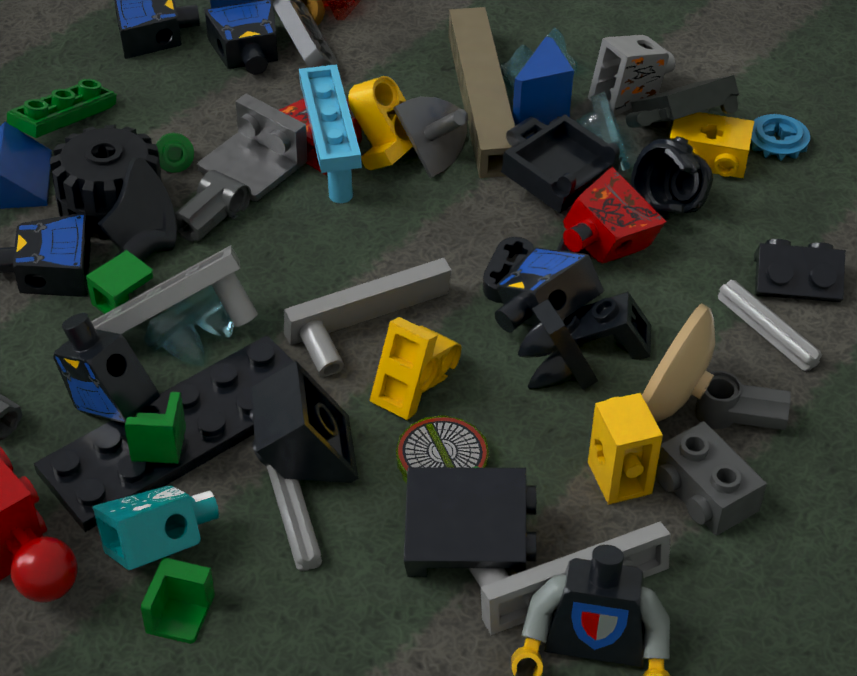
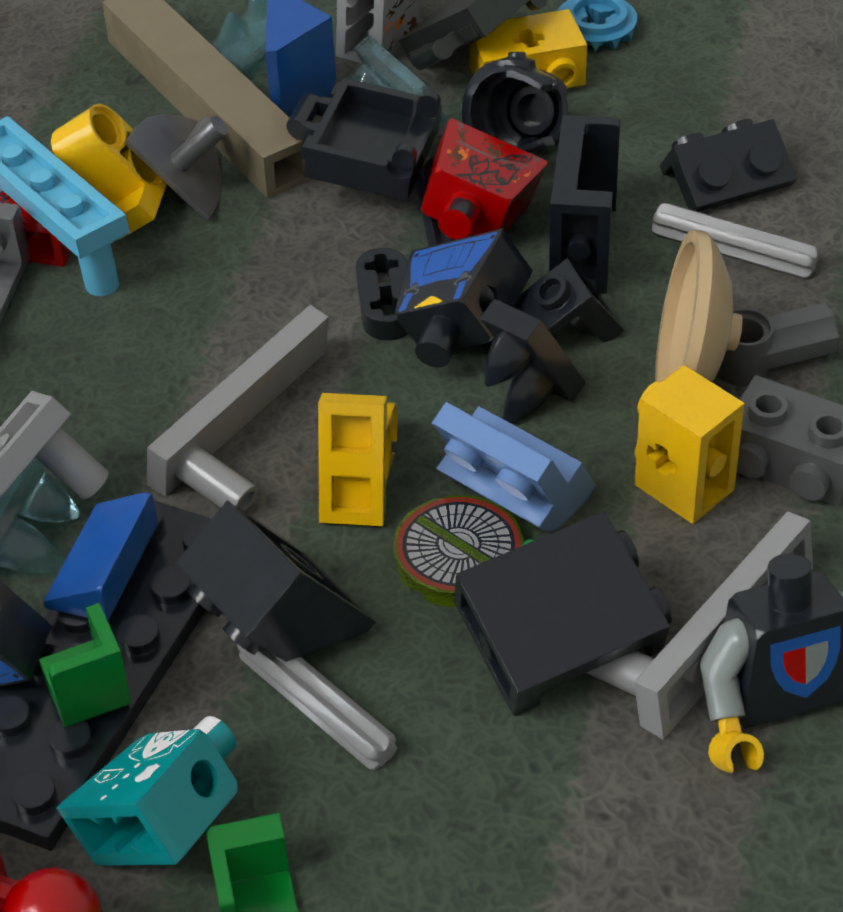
camera: 25 degrees left, 0 degrees up
(218, 367) = (104, 556): none -> blue slope
(504, 417) = (512, 467): none -> medium blue brick
(675, 238) = (585, 195): none -> black panel

